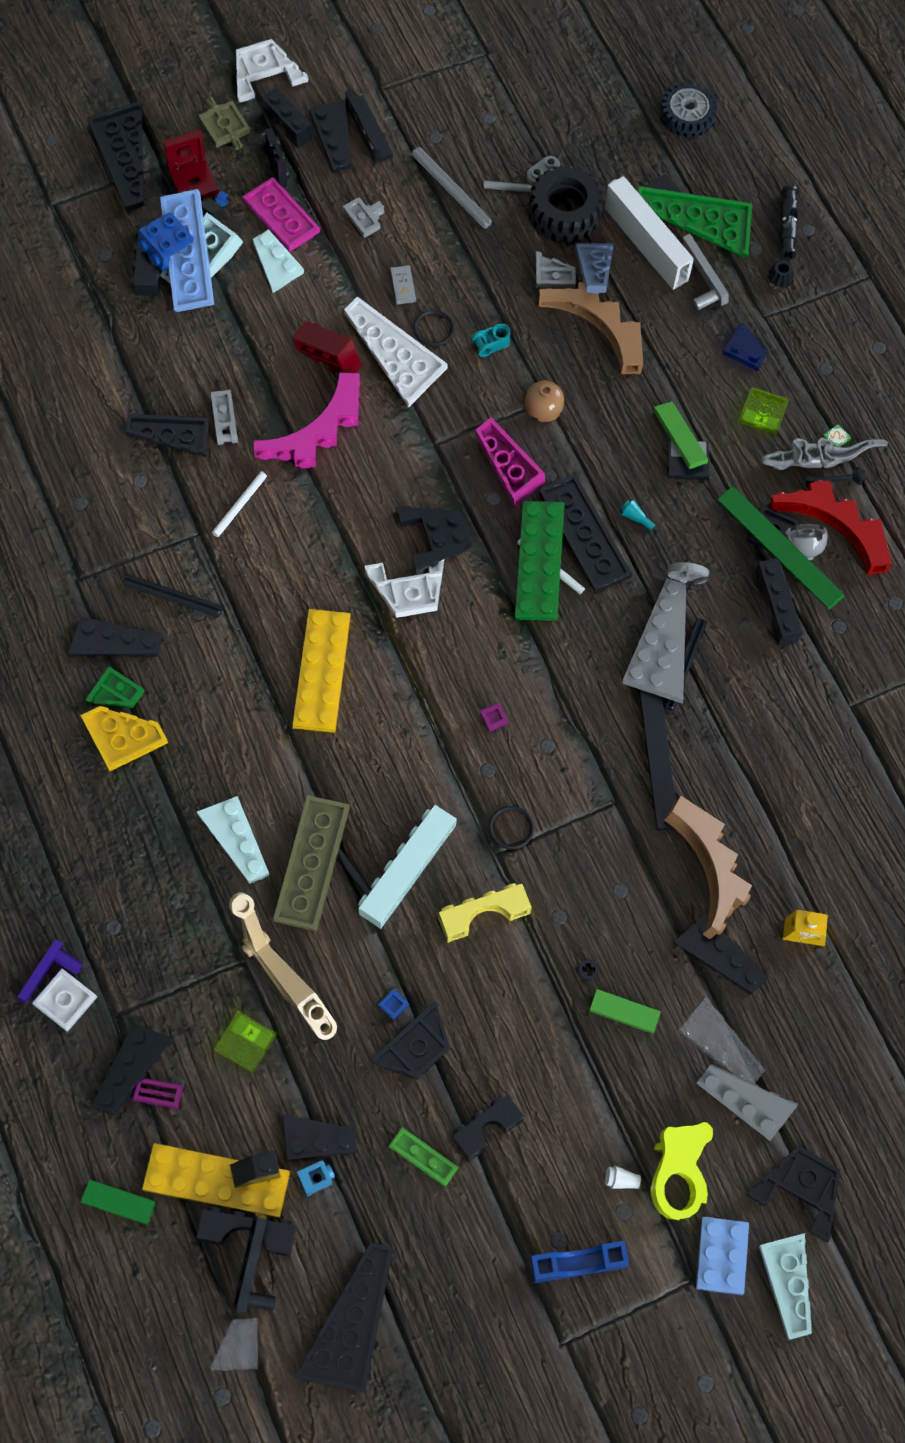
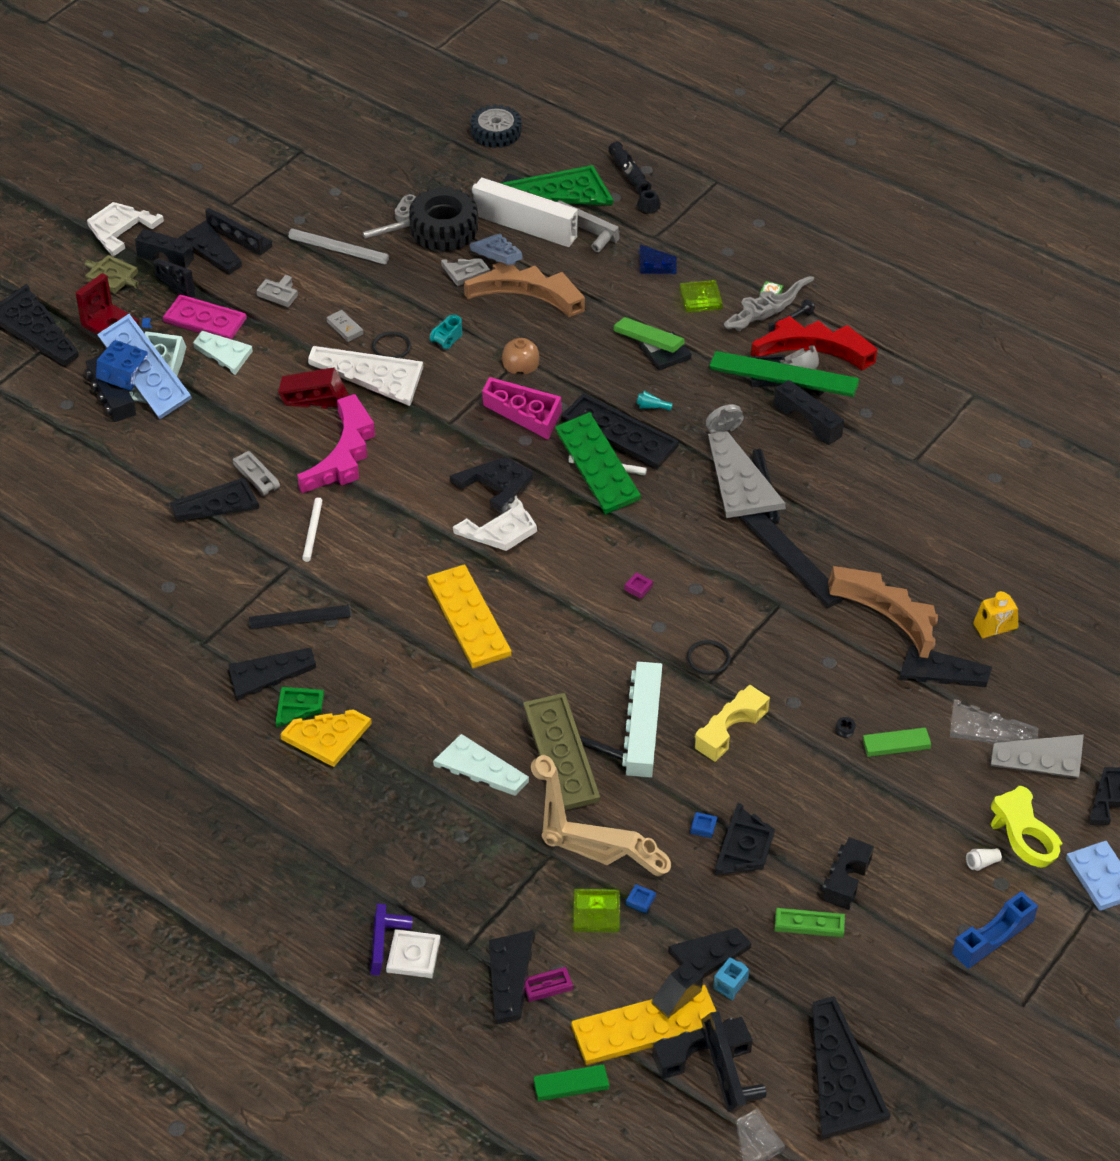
camera: 25 degrees left, 20 degrees down
(290, 1051) = (640, 898): none -> blue tile

